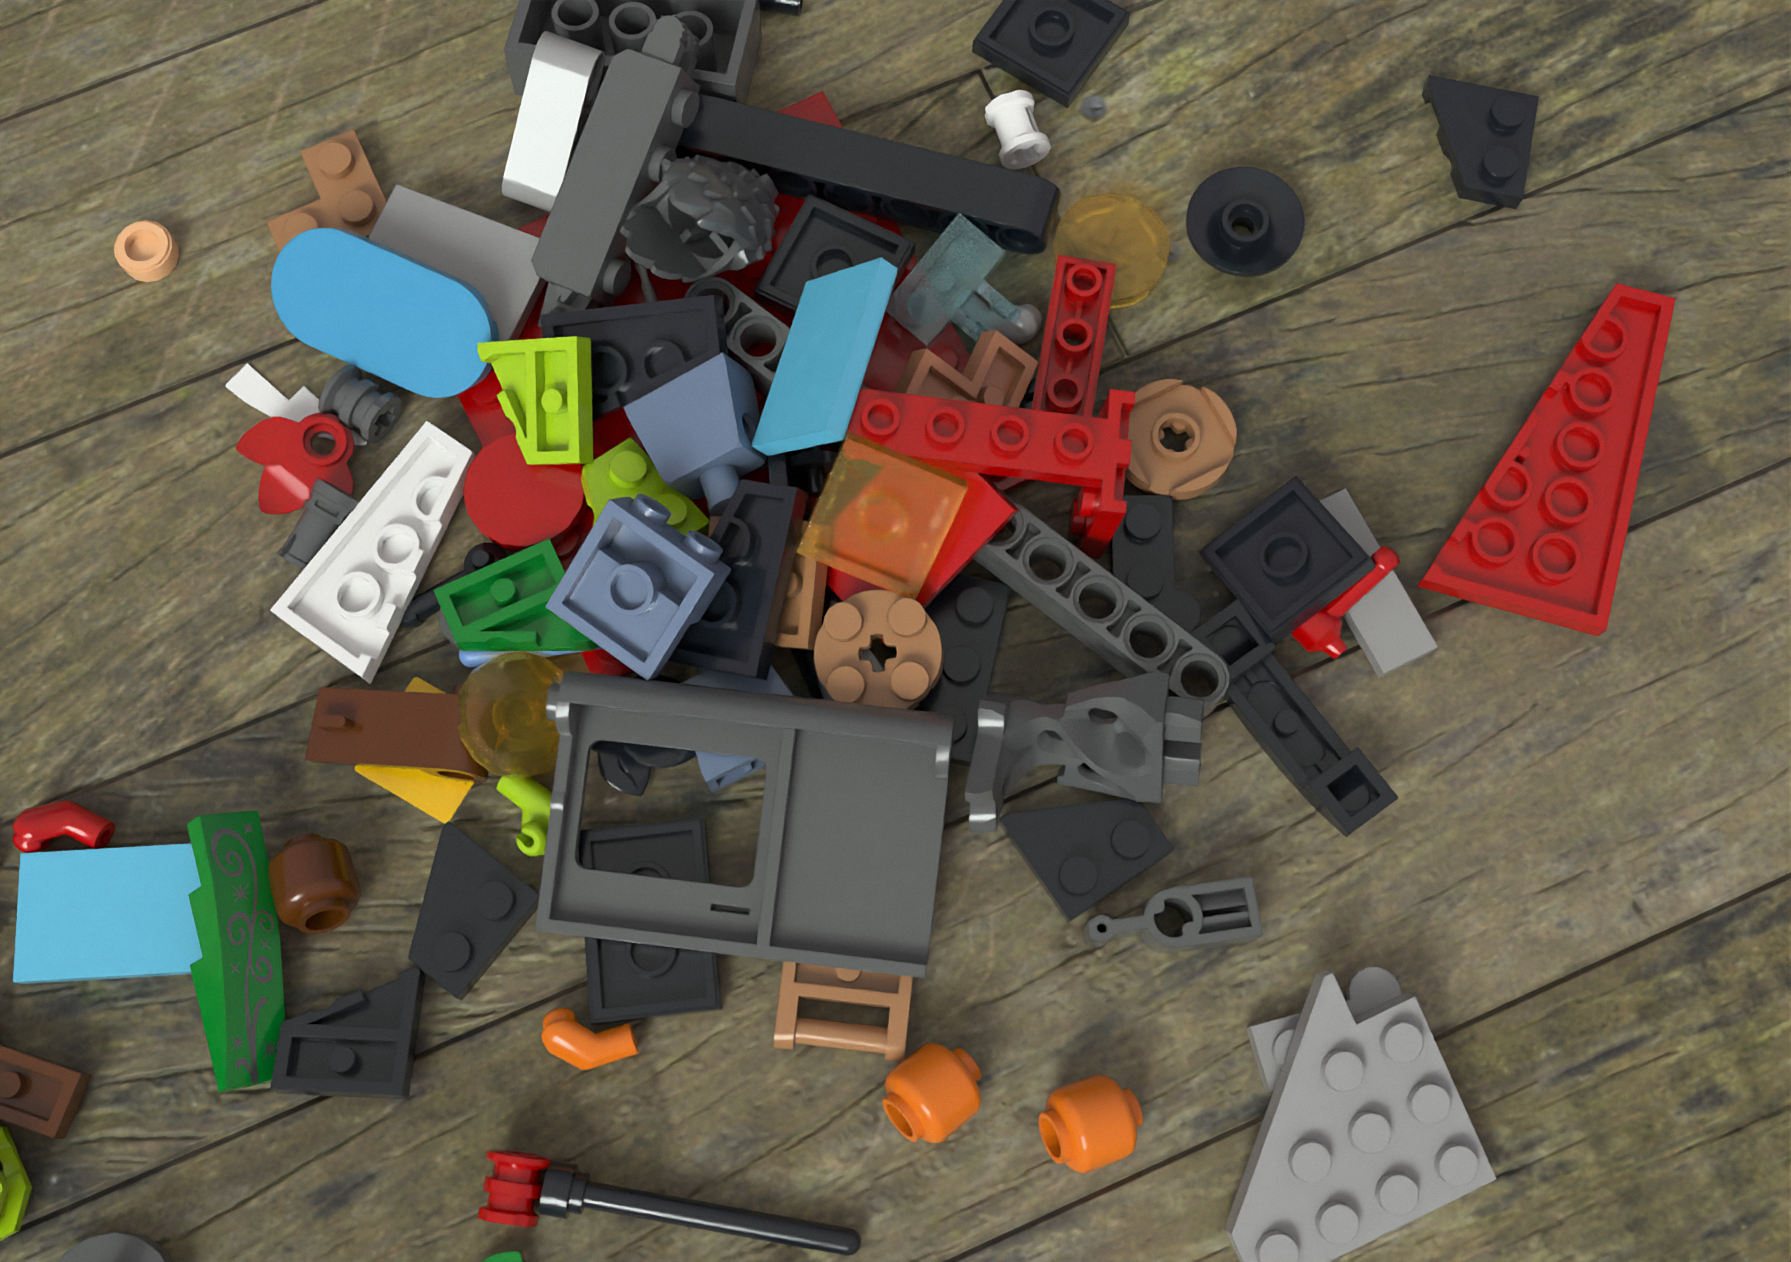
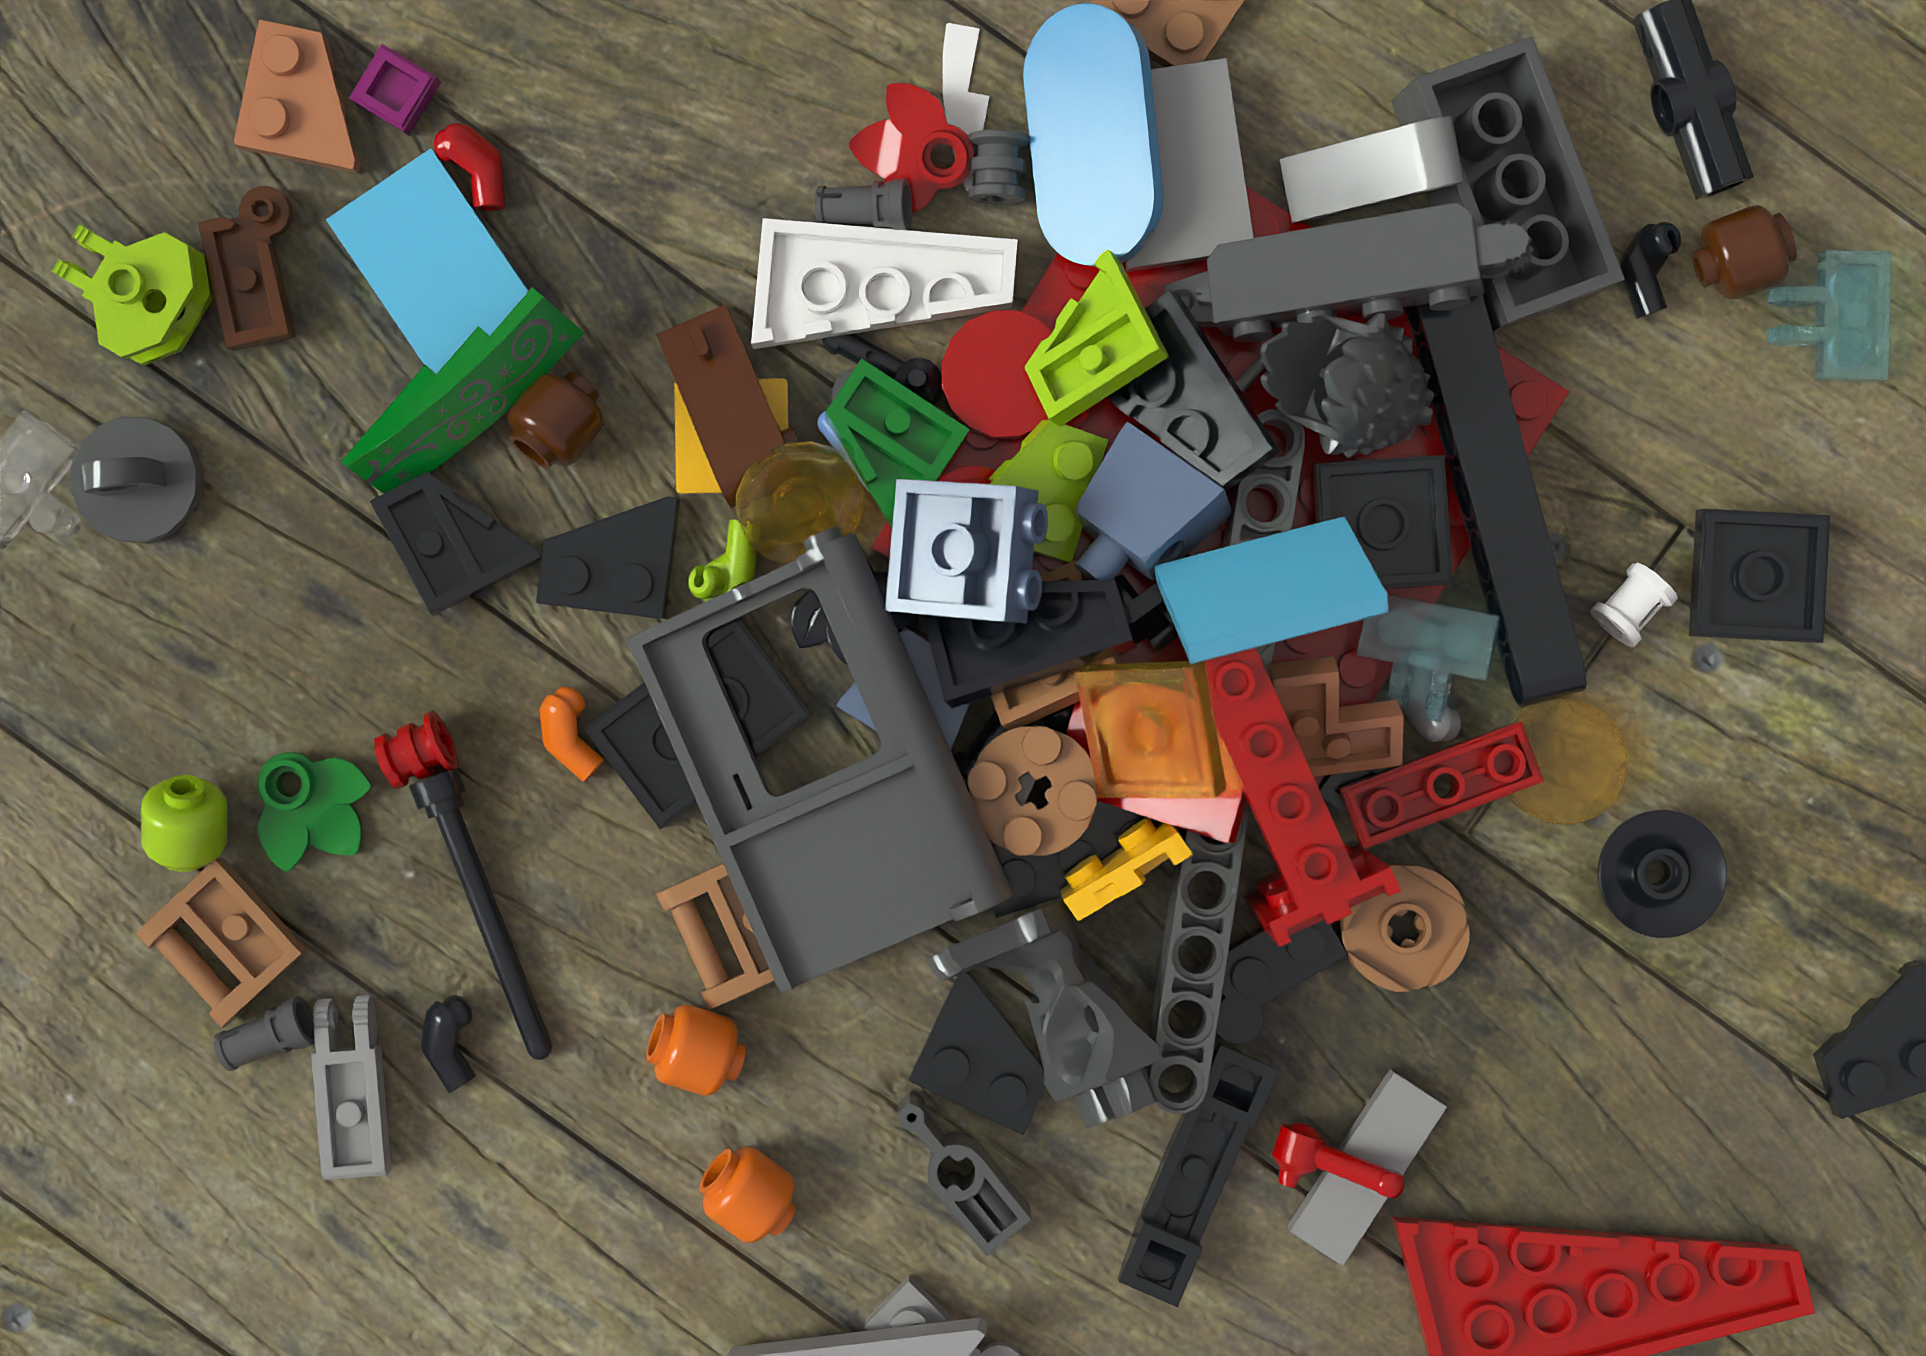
camera: 55 degrees right, 15 degrees up
(983, 597) = (1099, 882): none -> yellow wing
(1286, 559) = (1342, 1093): black plate -> none

